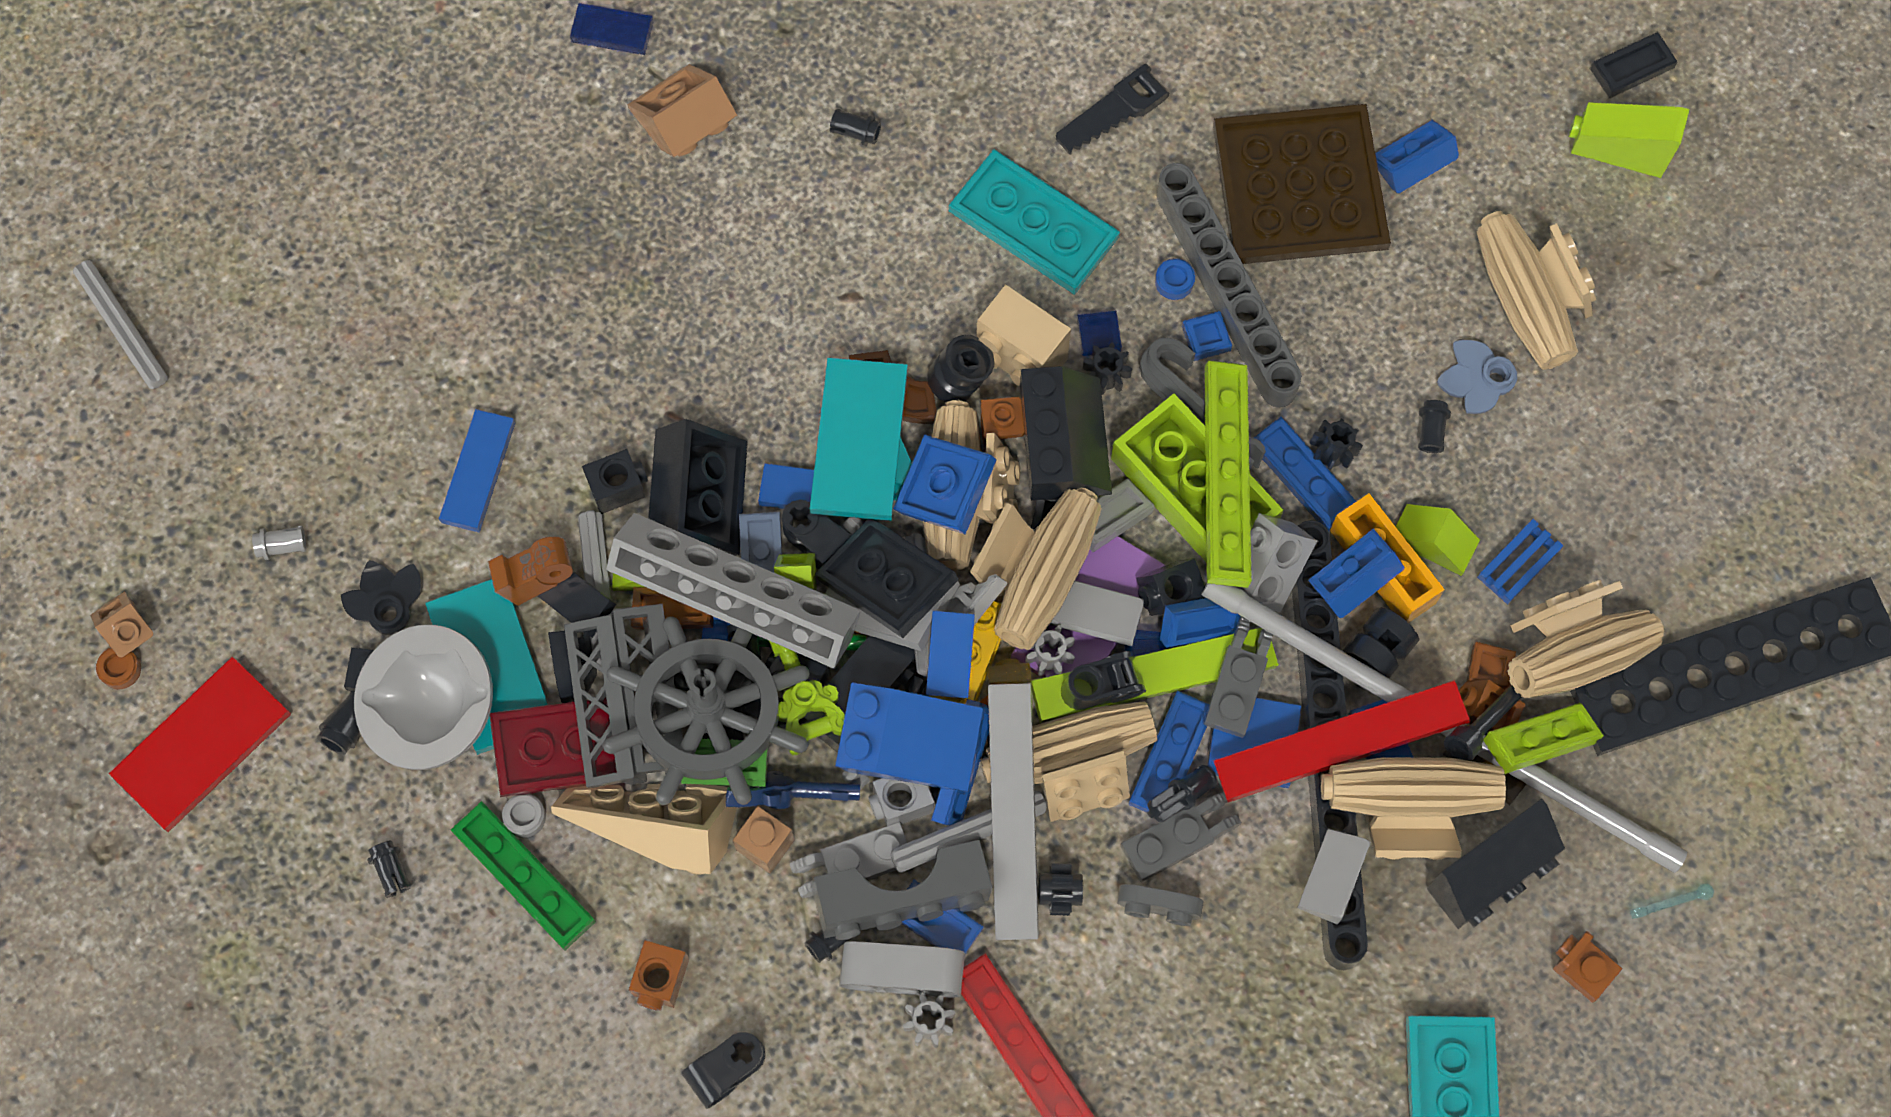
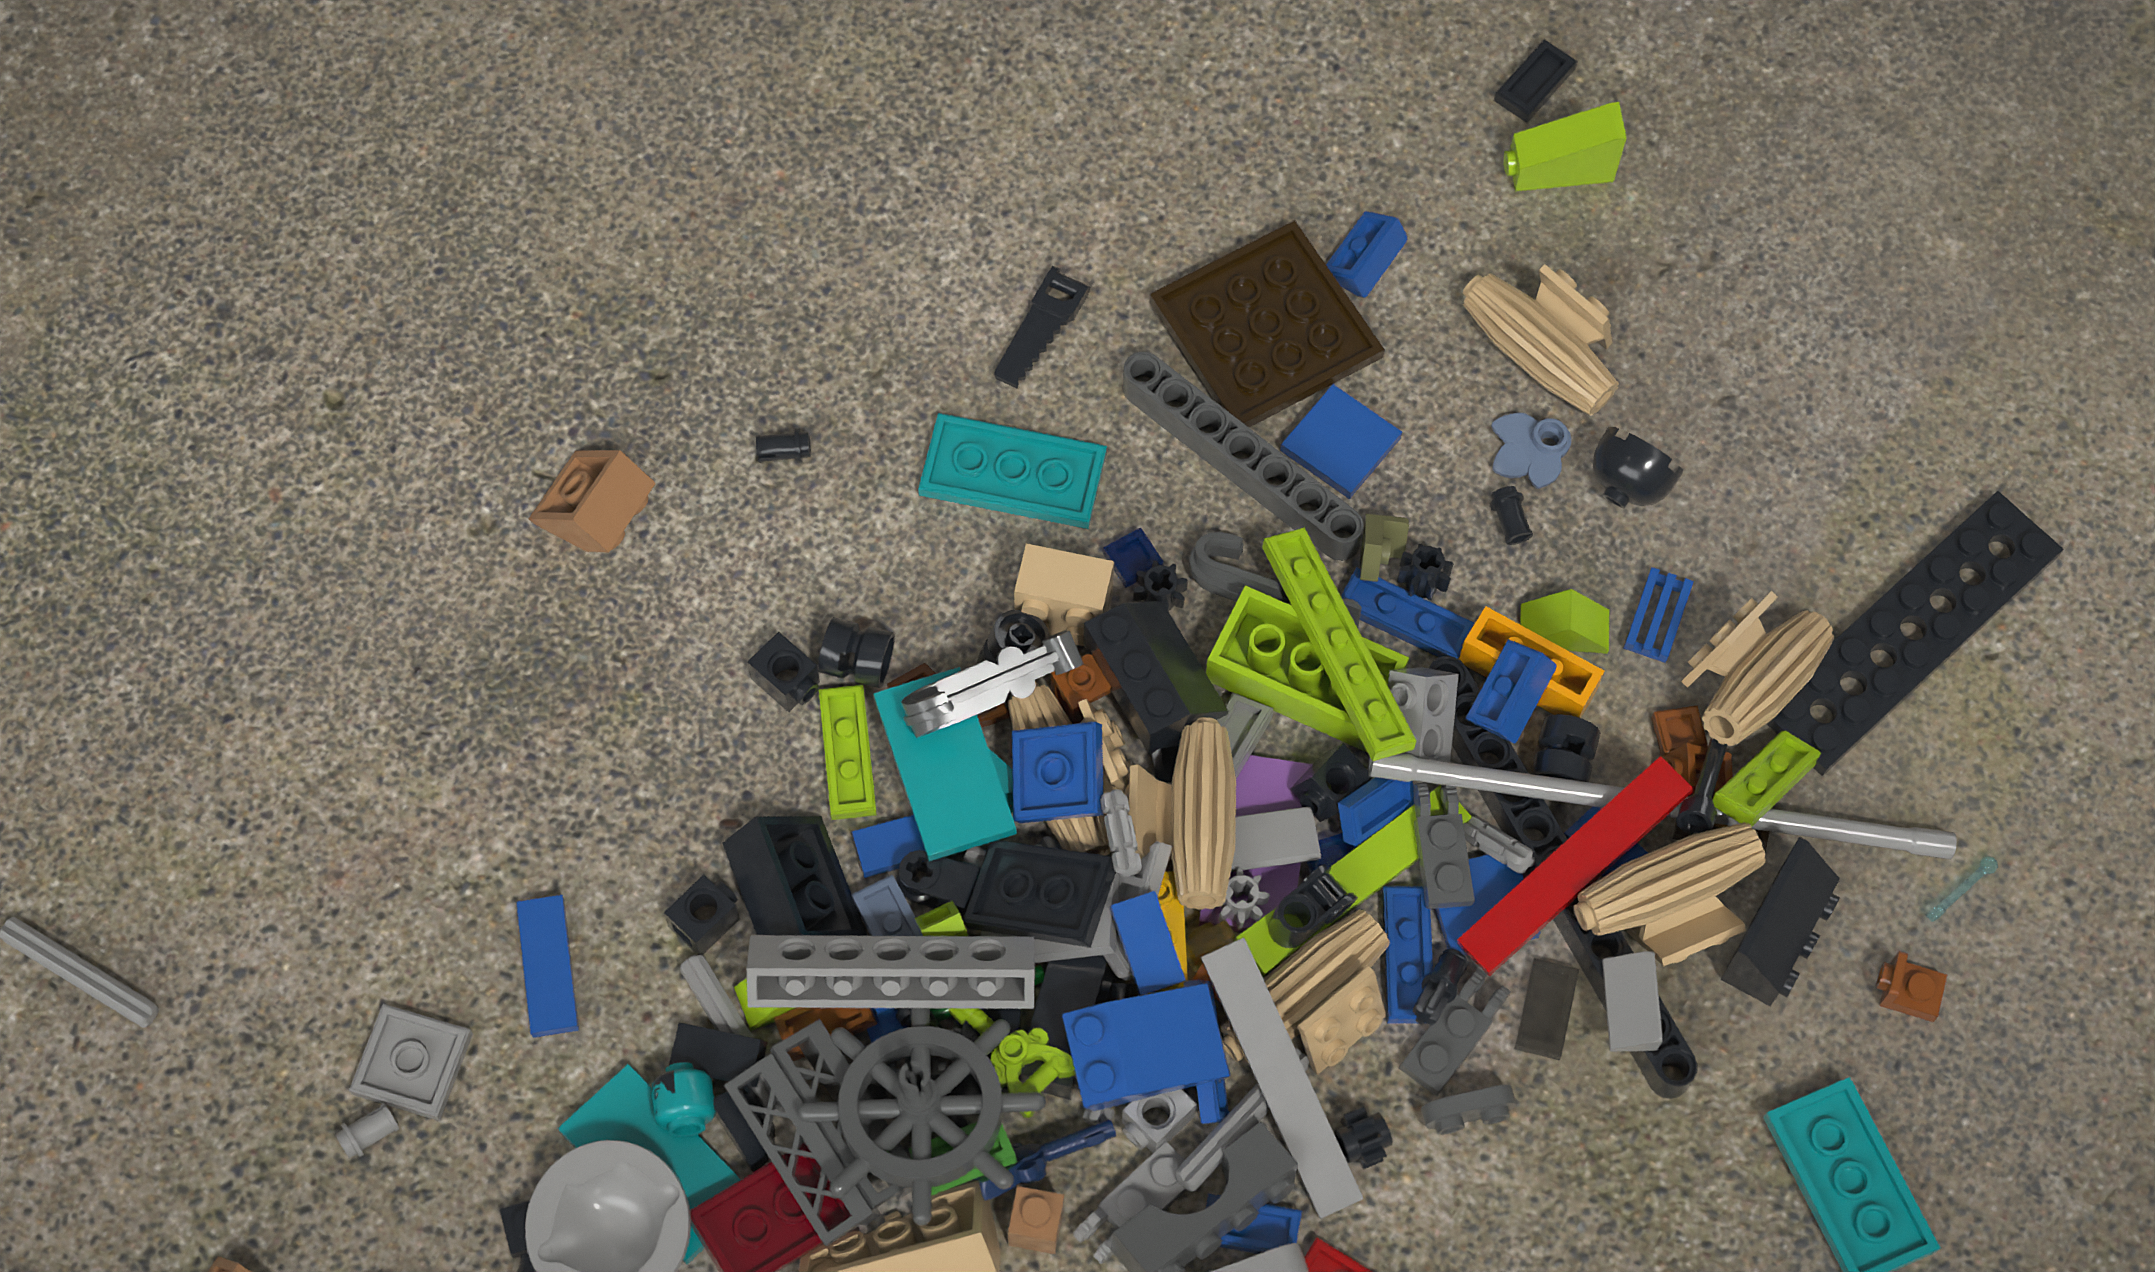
camera: 25 degrees left, 5 degrees down
(338, 502) = (411, 1062): none -> light grey tile
(383, 592) = (506, 1136): black plate -> none
(528, 622) = (683, 1100): none -> teal head
(531, 570) = (661, 1042): dark orange leg -> none
(611, 29) = (475, 446): clear blue tile -> none
(766, 297) = (781, 655): none -> black brick
(792, 398) = (847, 752): none -> lime tile
(830, 316) = (856, 652): none -> black wheel
(920, 388) = (988, 684): none -> piece
(970, 555) = (1120, 833): none -> light grey axle
(1175, 279) = (1184, 472): blue tile -> none
(1207, 335) = (1243, 515): blue tile -> none
(1266, 850) = (1546, 1009): none -> clear smoke tile
(1287, 696) = (1498, 844): none -> light grey axle
(1310, 401) = (1381, 539): none -> olive bracket
(1319, 306) = (1341, 441): none -> blue tile
(1553, 430) = (1633, 470): none -> black cylinder

